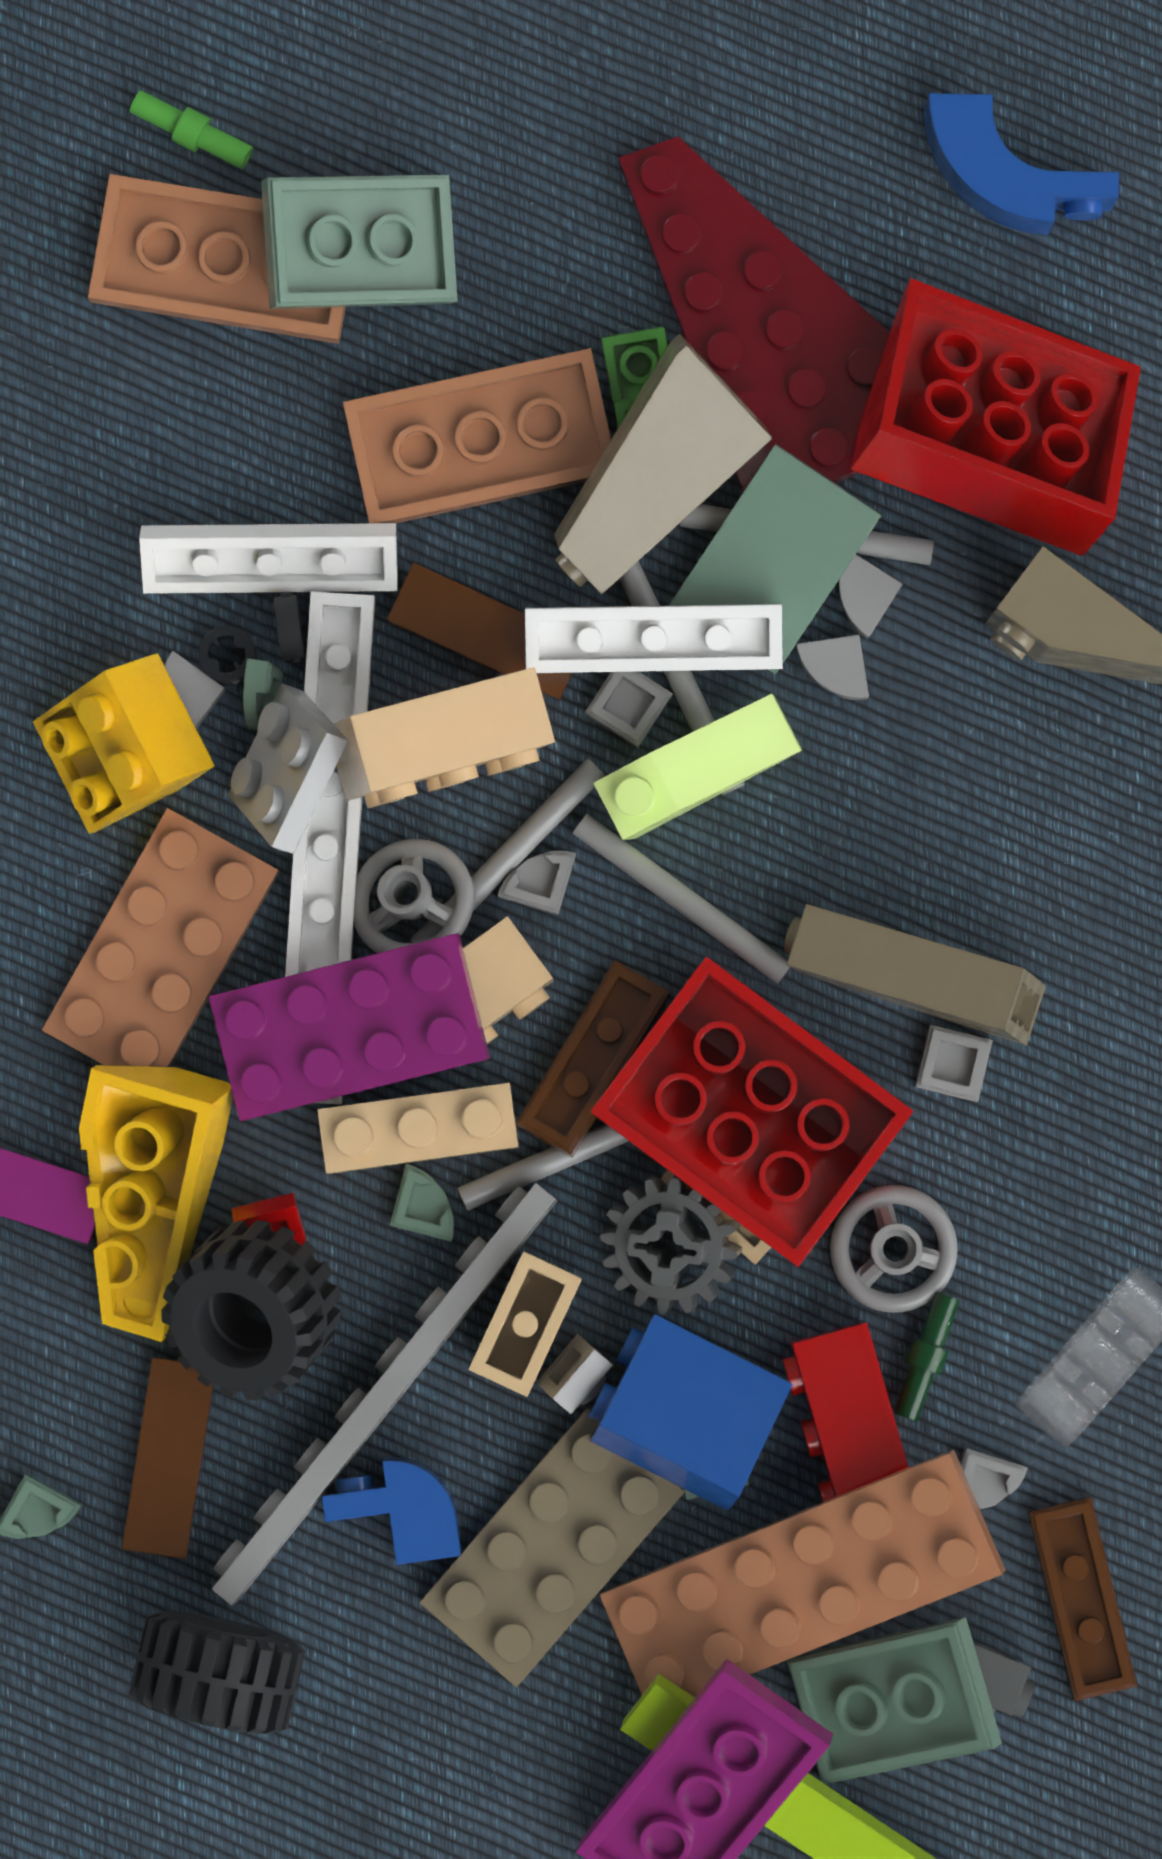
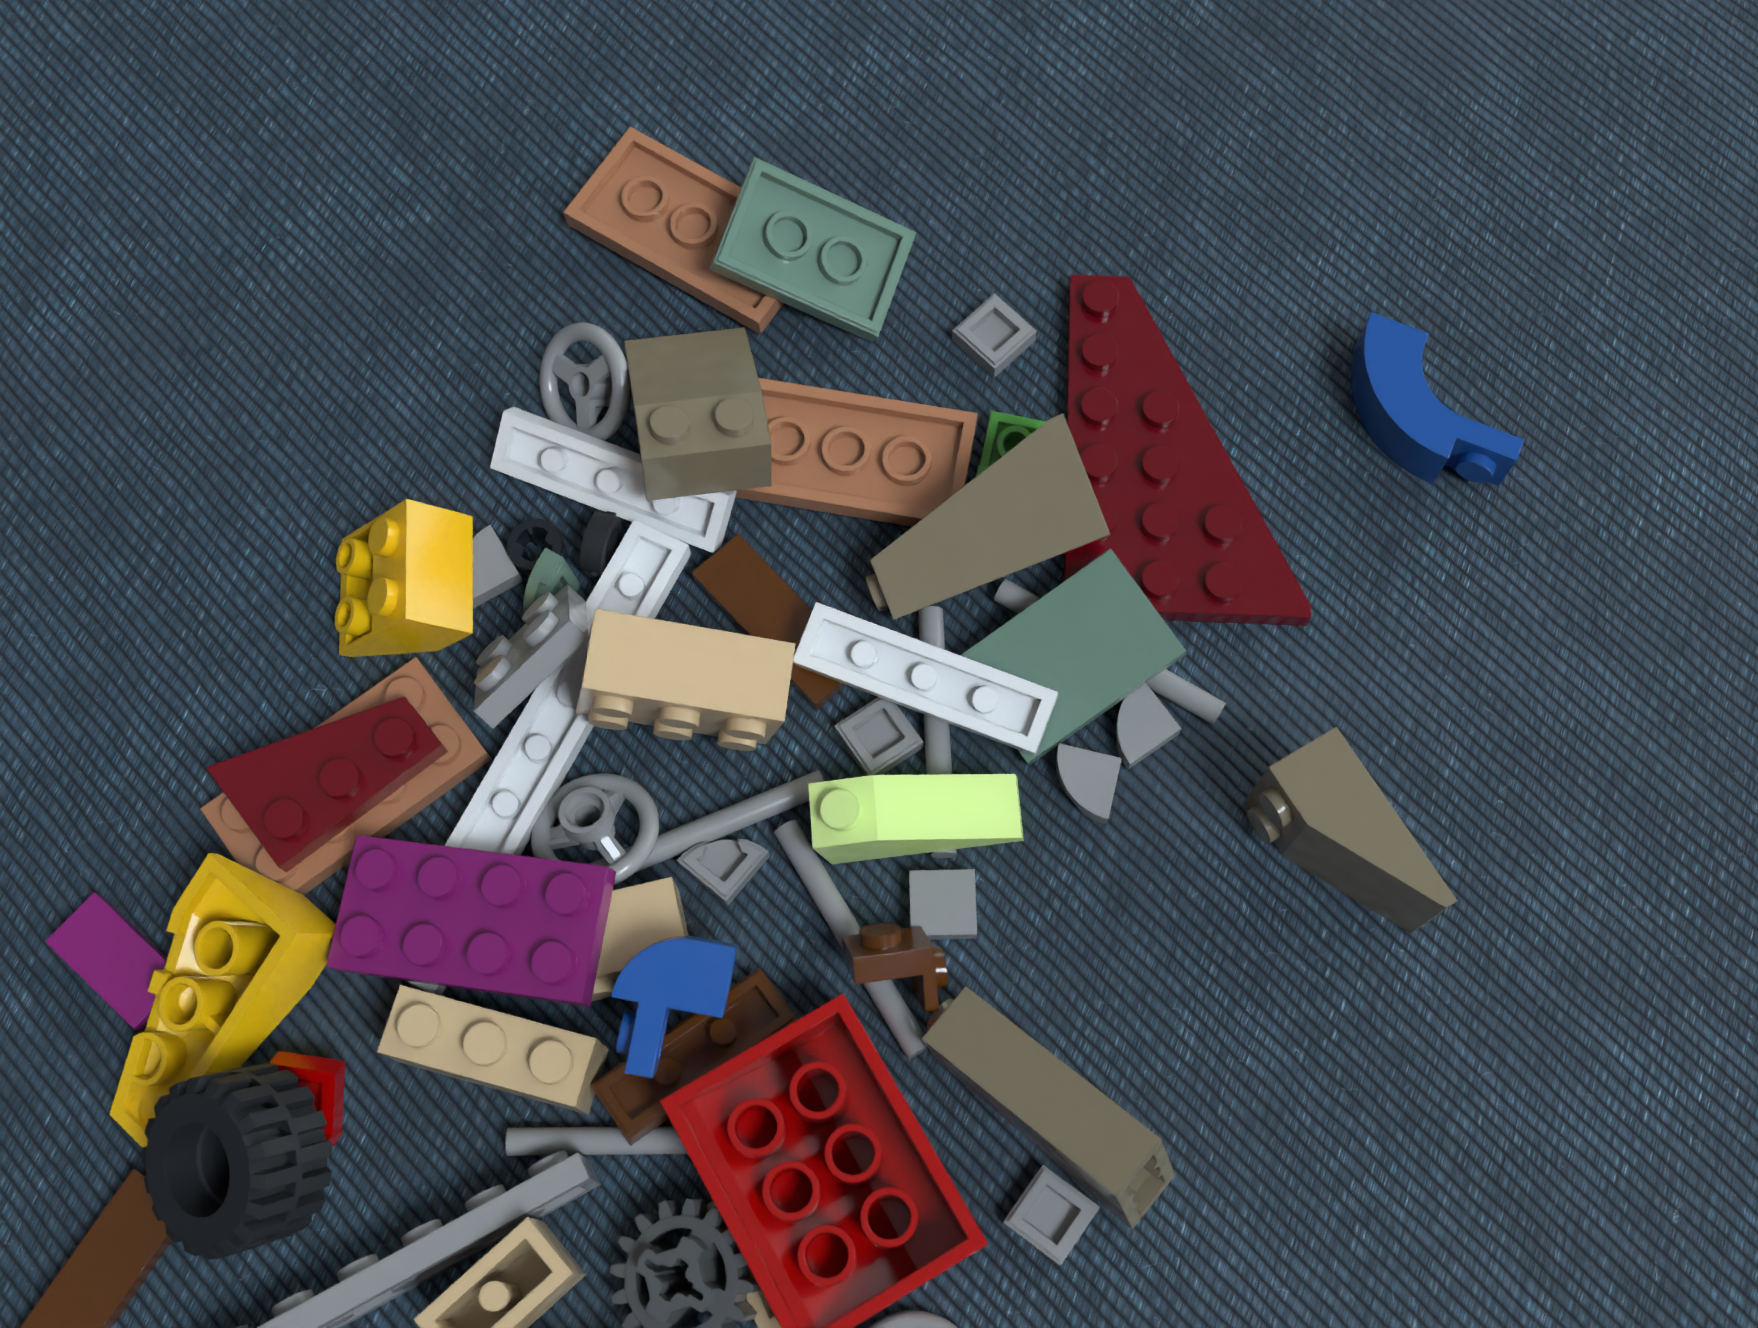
camera: 30 degrees right, 15 degrees down
(151, 955) = (326, 778): none -> dark red wing
(191, 129) = (716, 123): bright green bar -> none
(203, 470) = (592, 385): none -> light grey piece
(327, 461) = (698, 414): none -> dark tan slope
(423, 1206) = (467, 1131): sand green tile -> none
(553, 1001) = (673, 974): none -> blue brick
(568, 250) = (994, 335): none -> light grey tile
(733, 900) = (890, 953): none -> reddish brown bracket
(751, 835) = (944, 903): none -> light grey tile
(998, 419) = (1330, 614): red slope -> none

